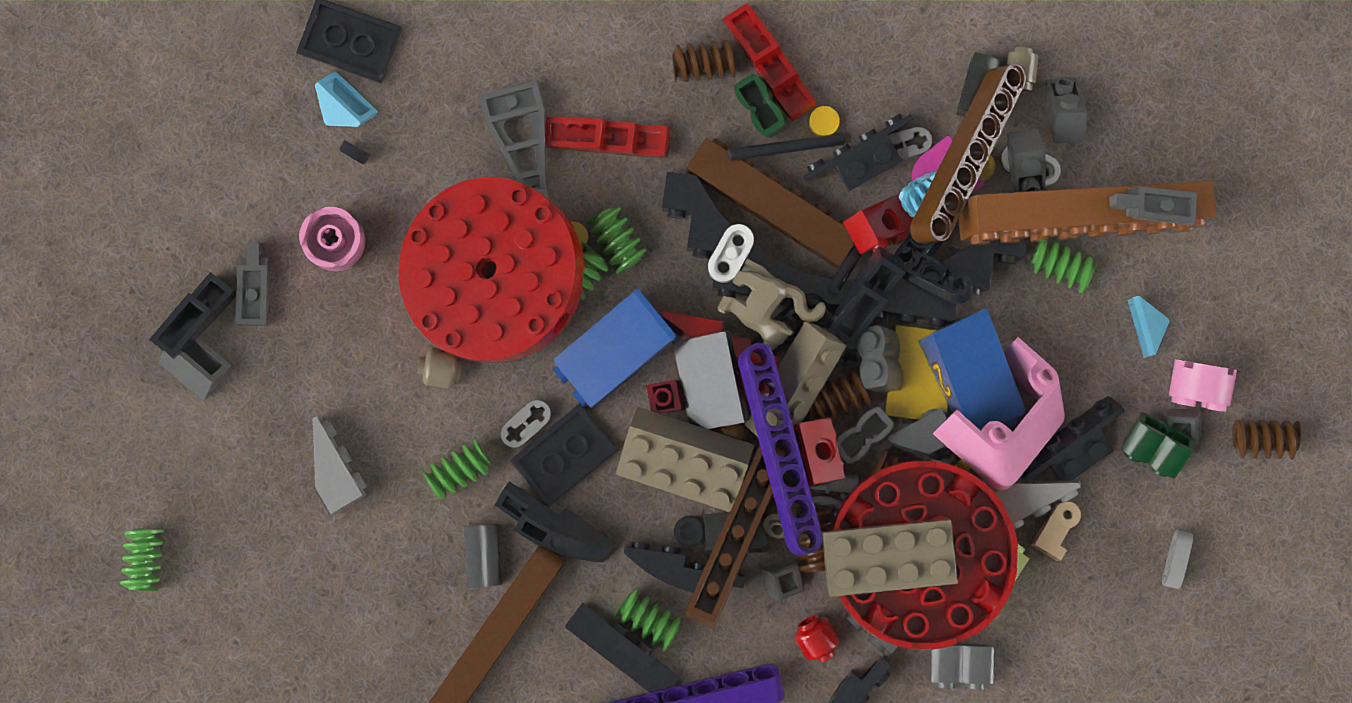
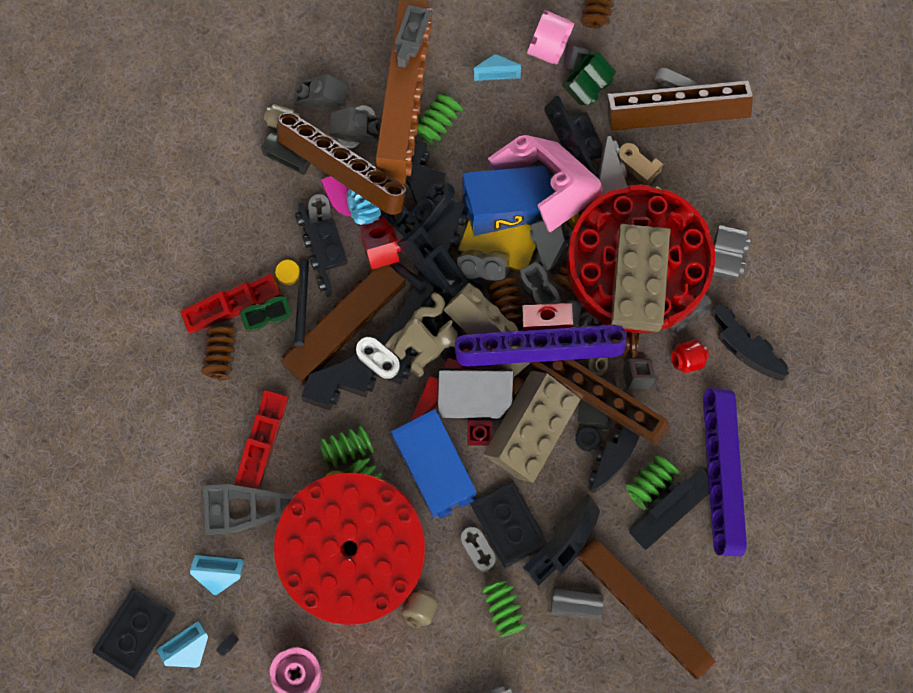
camera: 85 degrees left, 10 degrees down
(438, 119) = (216, 572): none -> medium azure slope
(1145, 569) = (679, 105): none -> reddish brown brick

